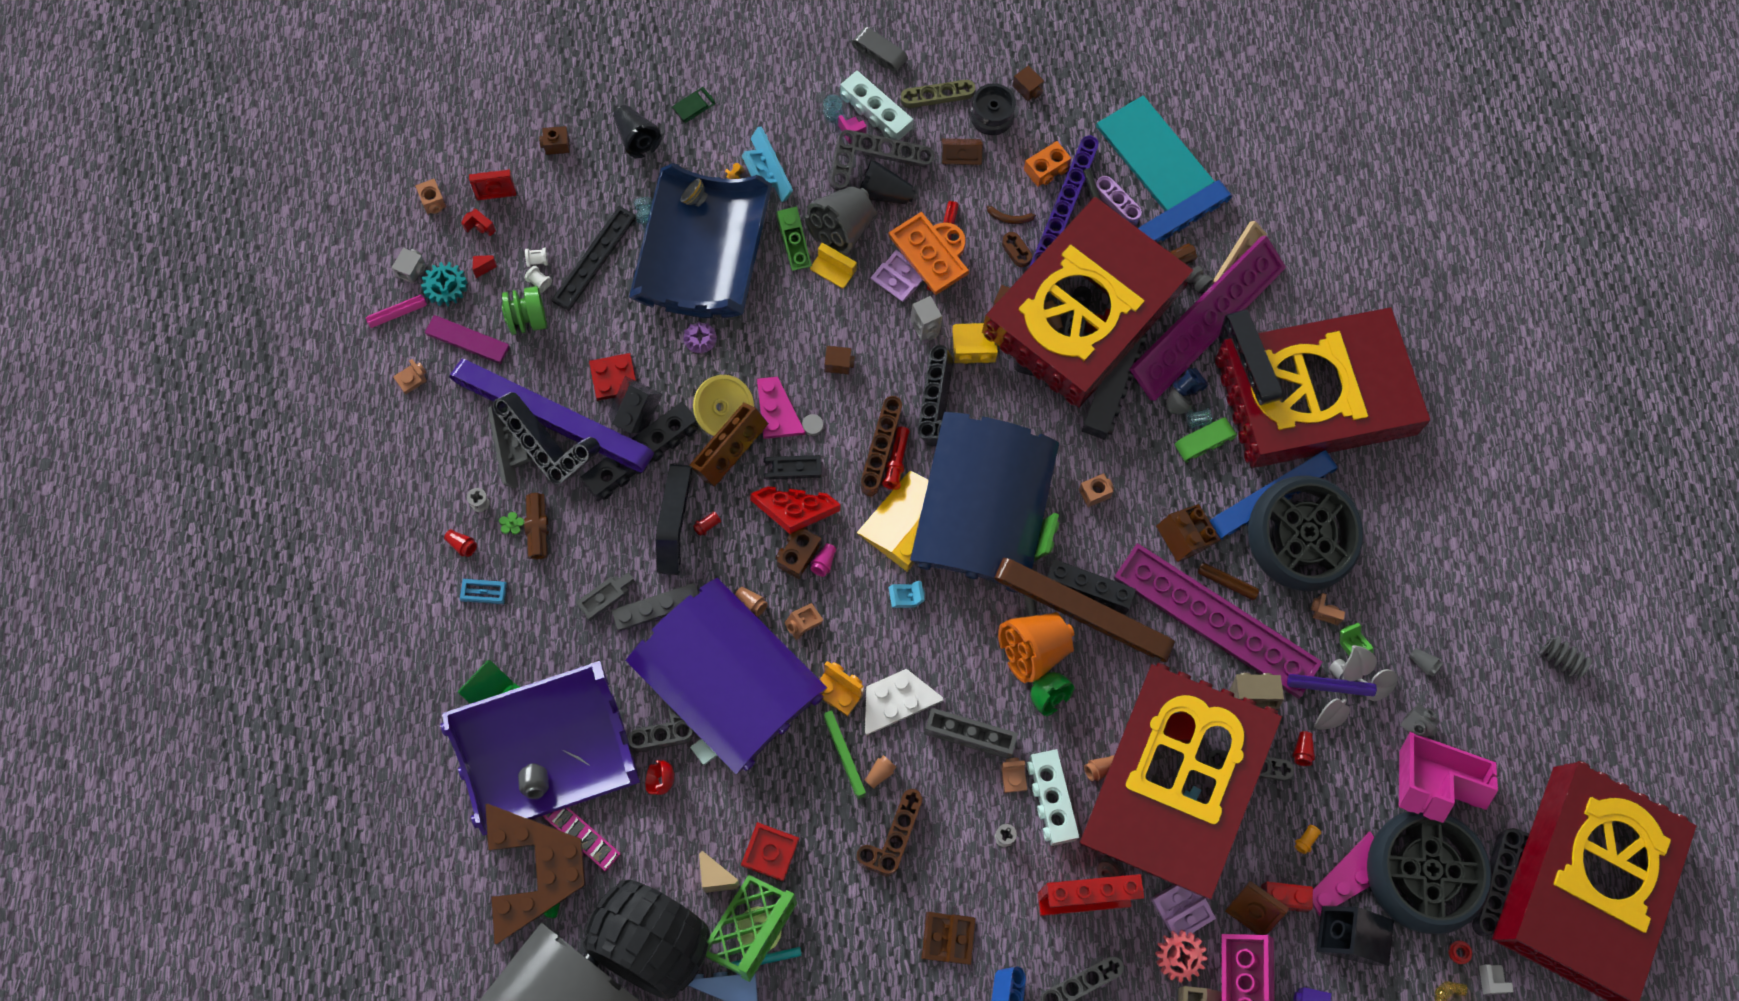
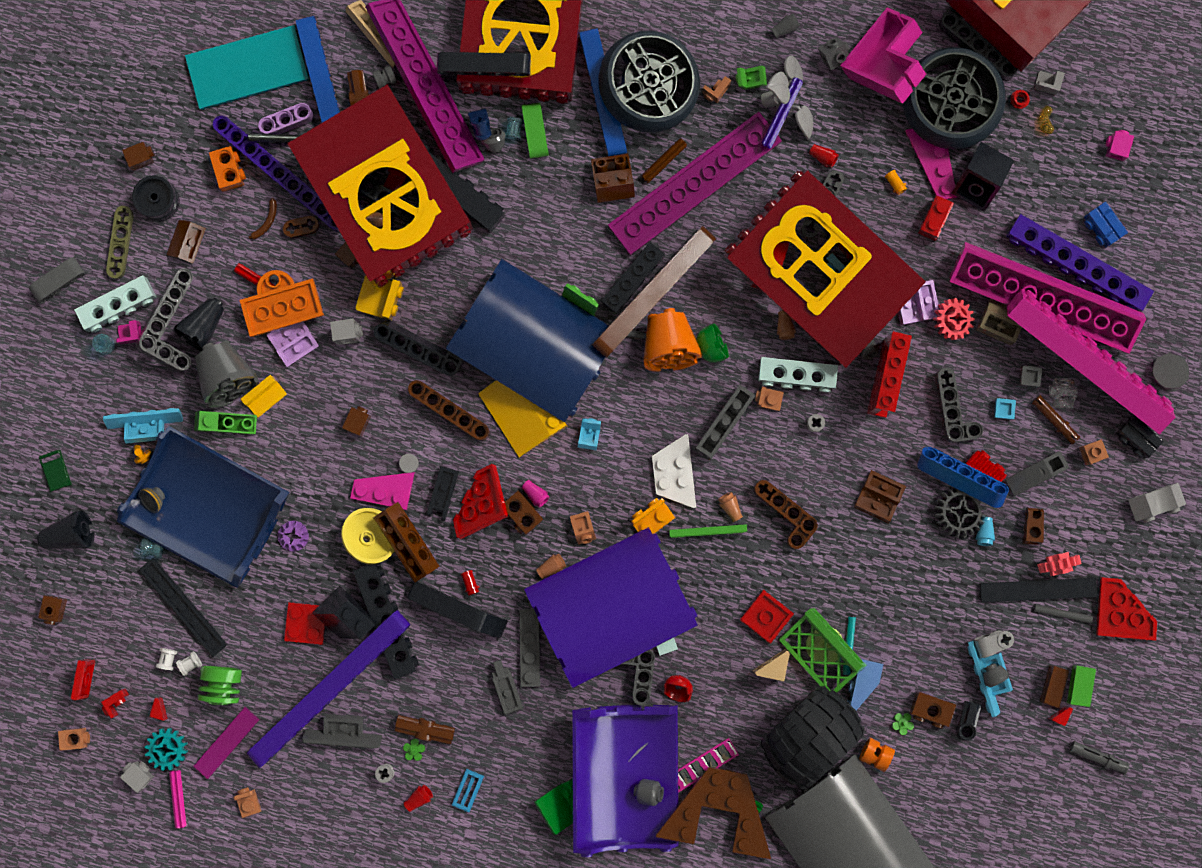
camera: 60 degrees left, 15 degrees up
(538, 442) = (353, 706): black beam -> none
(895, 465) = (471, 405): red pin -> none
(1090, 496) = (549, 249): nougat brick -> none
(1256, 909) = (938, 246): reddish brown tile -> none
(1263, 689) = (769, 177): dark tan slope -> none

